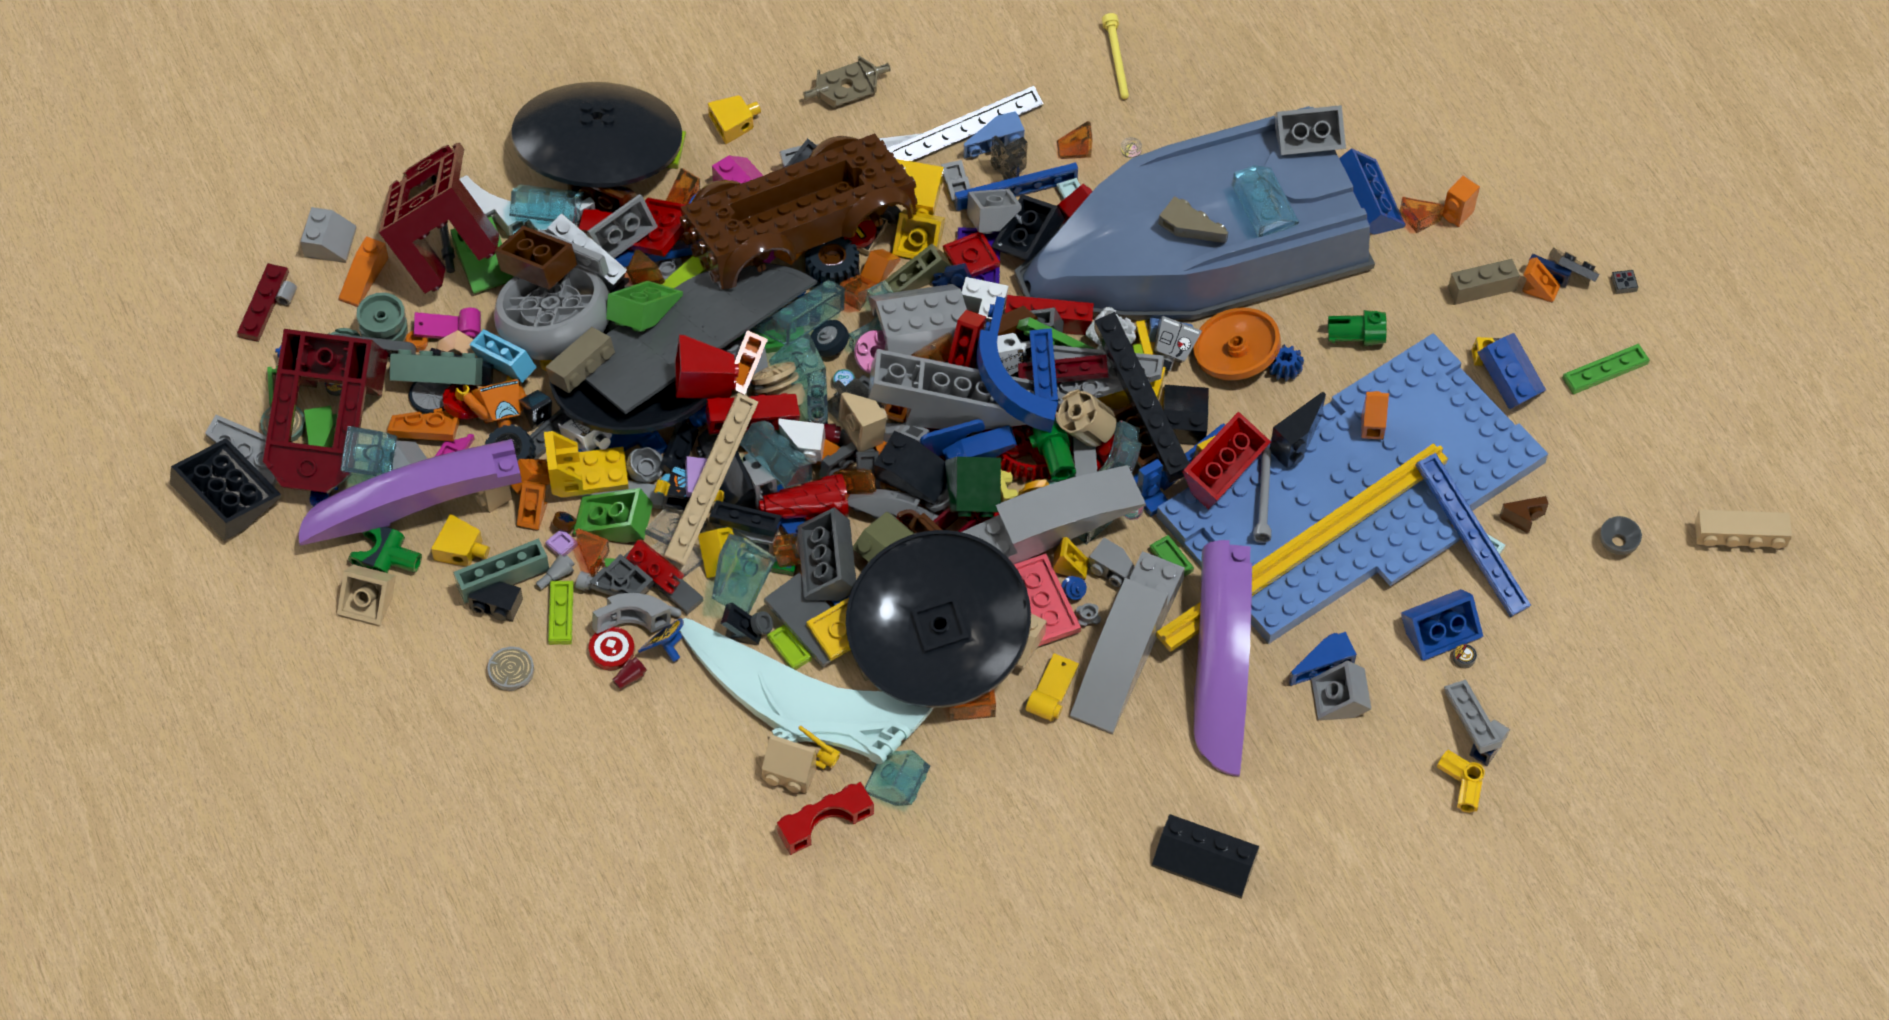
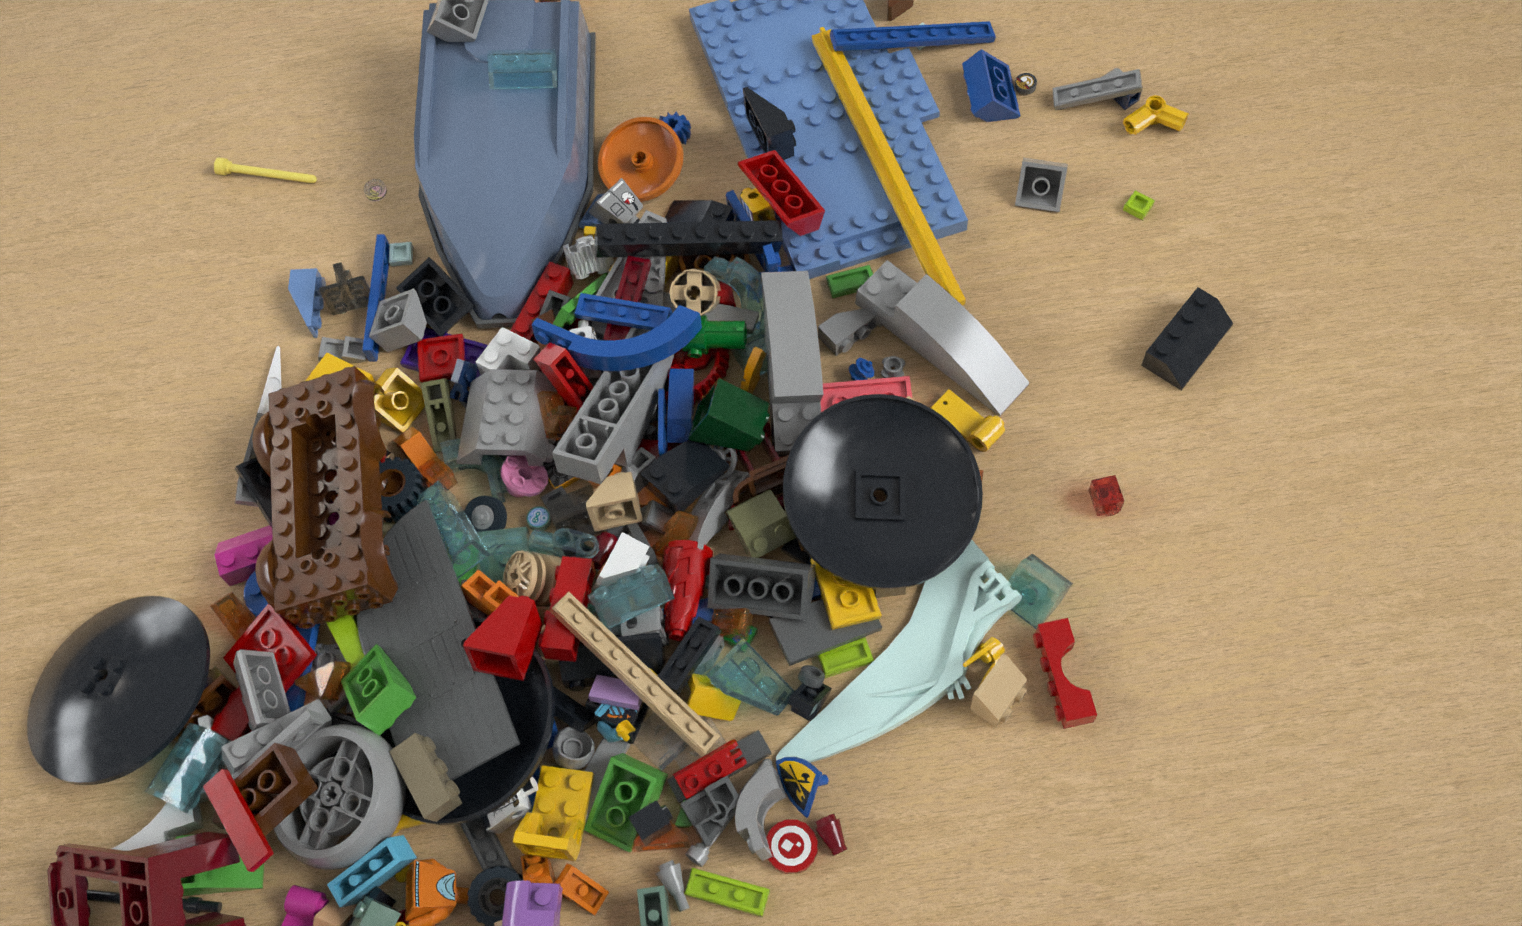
camera: 65 degrees left, 5 degrees up
(506, 243) = (238, 820): none -> red tile
(536, 408) = (453, 849): black slope -> none
(561, 543) = (637, 869): lavender tile -> none
(564, 521) = (612, 857): reddish brown tile -> none
(594, 532) = (652, 822): none -> black brick
(732, 117) = (160, 542): yellow torso -> none
(861, 75) = (171, 403): dark tan plate -> none
(965, 126) = (282, 319): tile -> none
(1010, 817) = (1106, 496): none -> clear red brick
(1070, 560) = (832, 366): yellow slope -> none
(1073, 201) = (425, 244): red slope -> none
(1076, 143) = (350, 230): clear orange slope -> none
(1187, 222) = (516, 135): dark tan slope -> none
(1223, 654) = (988, 254): medium lavender slope -> none
(1262, 531) = (860, 191): light grey piece -> none
(1326, 655) = (1000, 185): blue slope -> none
(1352, 788) = (1138, 205): none -> lime tile
(1369, 328) = (662, 57): green piece -> none
(1374, 415) = (771, 66): orange slope -> none

